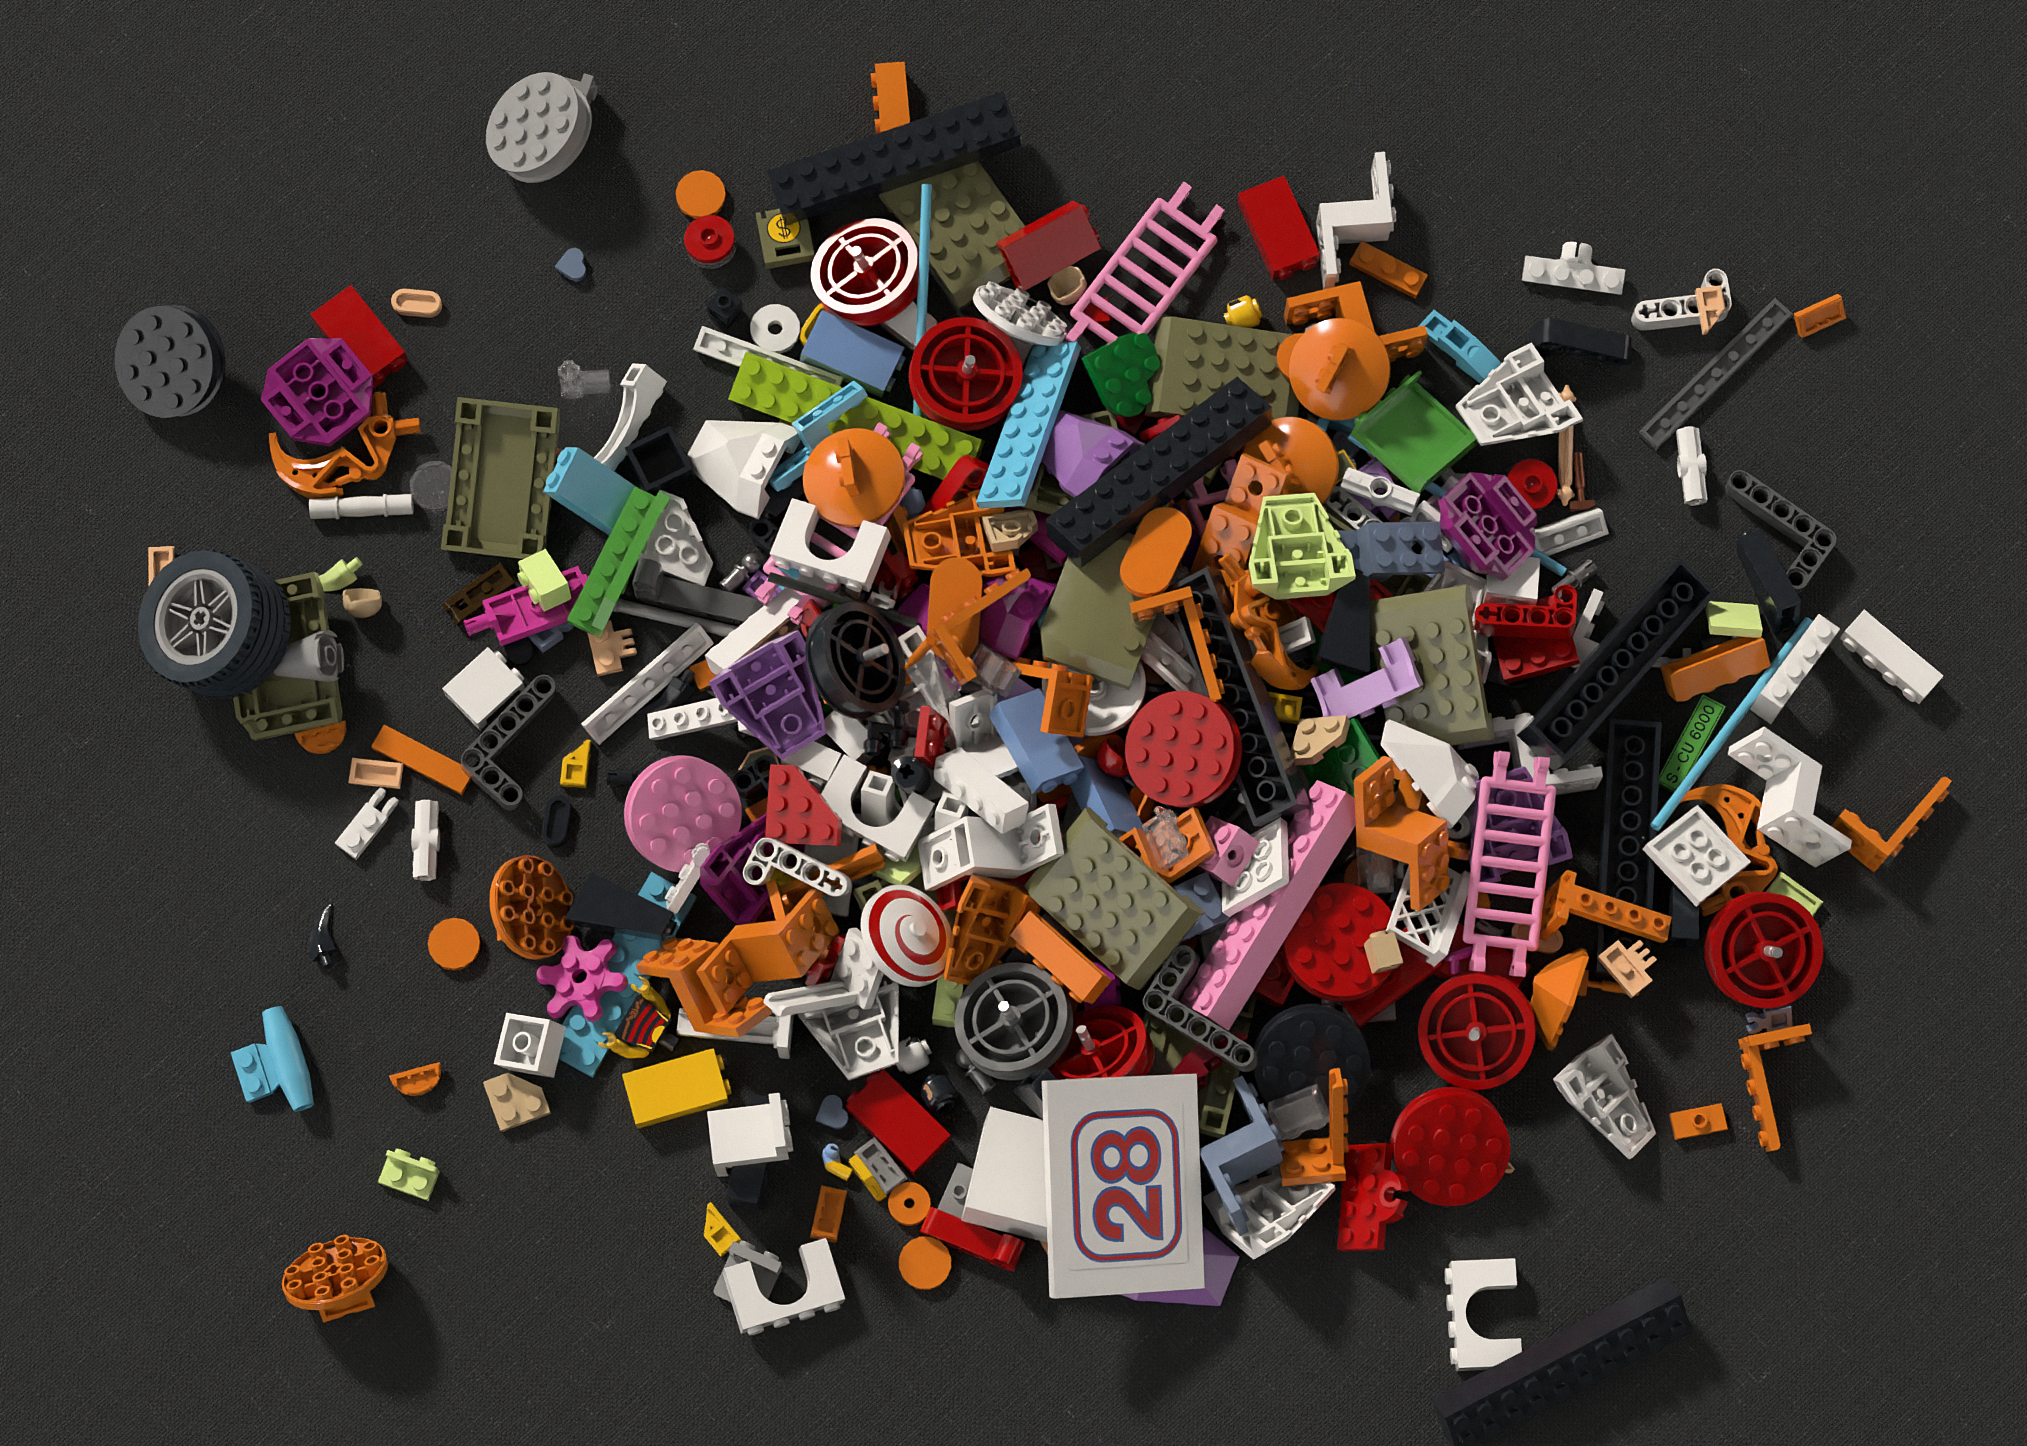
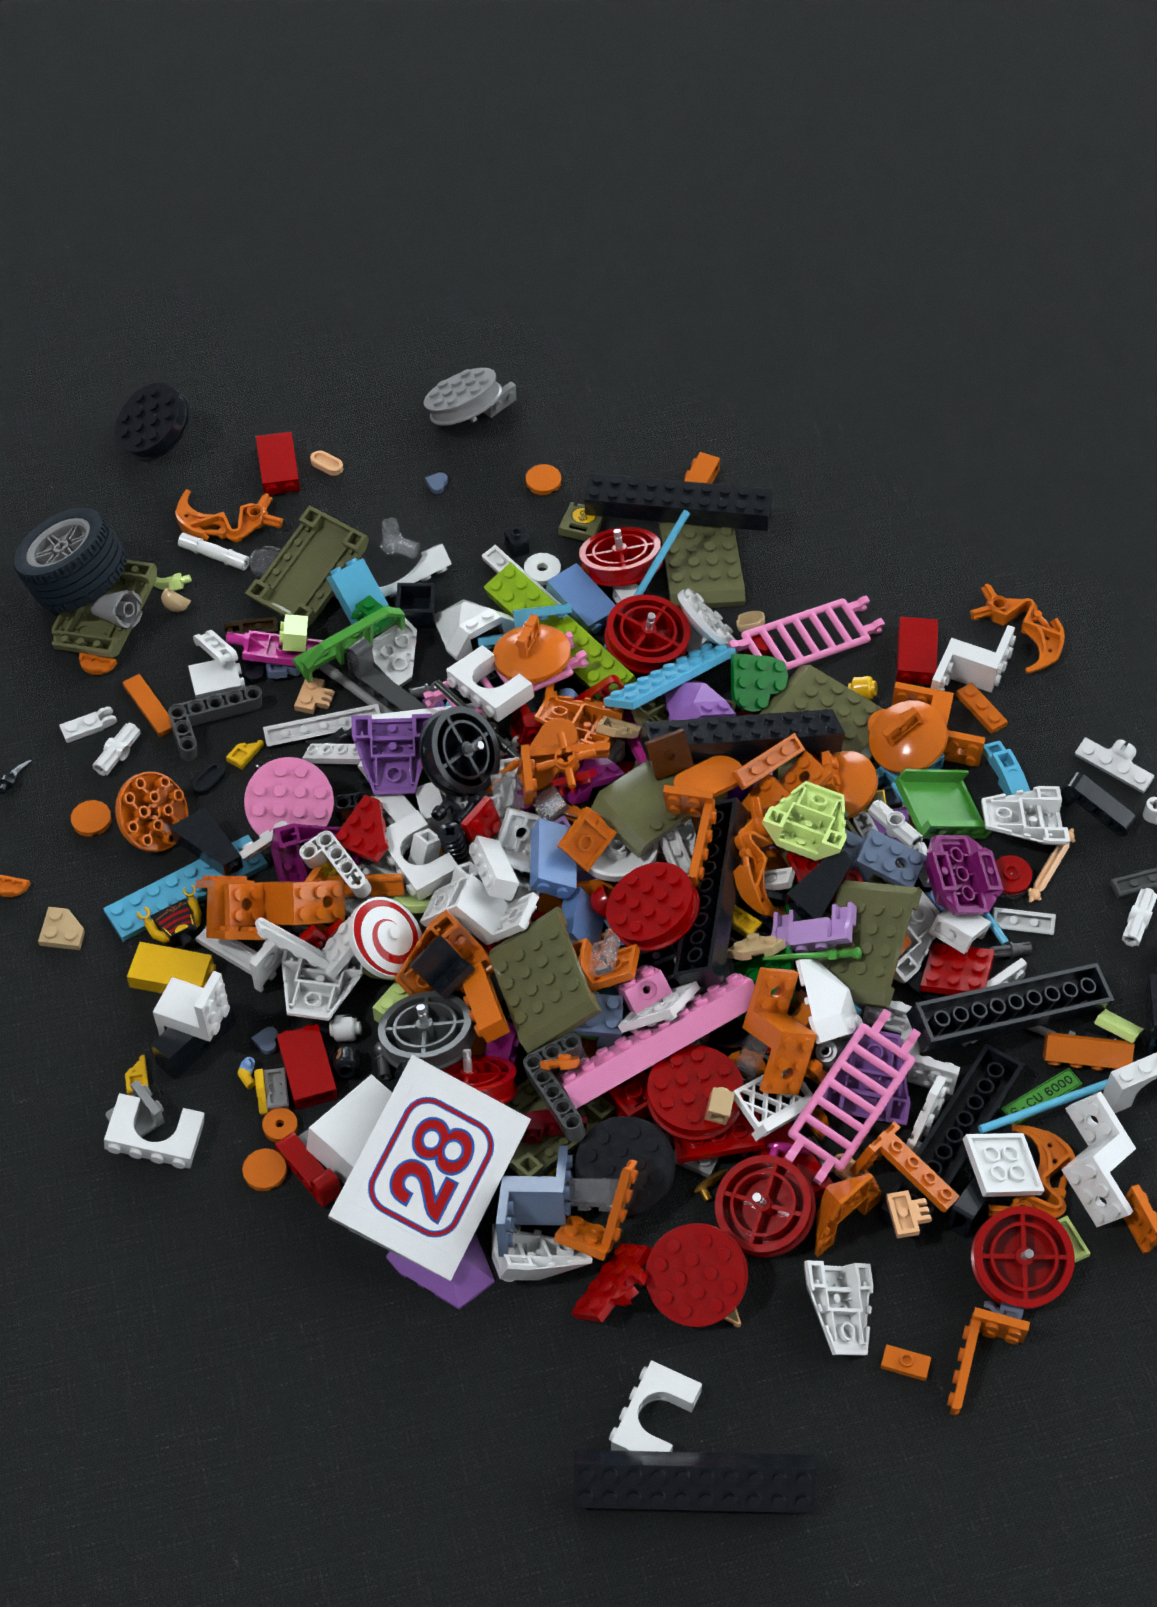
camera: 30 degrees right, 20 degrees down
(315, 367) = (230, 476): magenta piece -> none
(376, 773) = (114, 699): light nougat tile -> none
(458, 646) = (216, 647): none -> white plate
(530, 1045) = (92, 895): white brick -> none
(589, 992) = (153, 882): dark pink plate -> none
(624, 508) = (367, 607): none -> green plate
(710, 241) = (531, 504): red piece -> none
(828, 1214) = (219, 1102): orange plate -> none
(985, 608) = (566, 753): none -> orange bar
(996, 942) = (442, 967): none -> black bracket
(1007, 631) = (583, 778): none -> red plate
(1049, 245) = (752, 592): red brick -> none
(1100, 547) = (669, 754): none -> reddish brown plate
(1192, 986) = (564, 1062): none -> orange plate
(1210, 494) = (768, 761): none -> orange tile
(1354, 111) = (1046, 637): none -> orange piece
(1395, 1036) = (703, 1187): none -> pearl gold bar
(1404, 709) = (832, 954): none -> bright green sword
(1526, 614) = (961, 951): red beam -> none
(1579, 475) = (1043, 907): copper piece -> none
(1590, 840) = (931, 1112): none -> white plate
(1603, 985) = (869, 1220): orange piece -> none

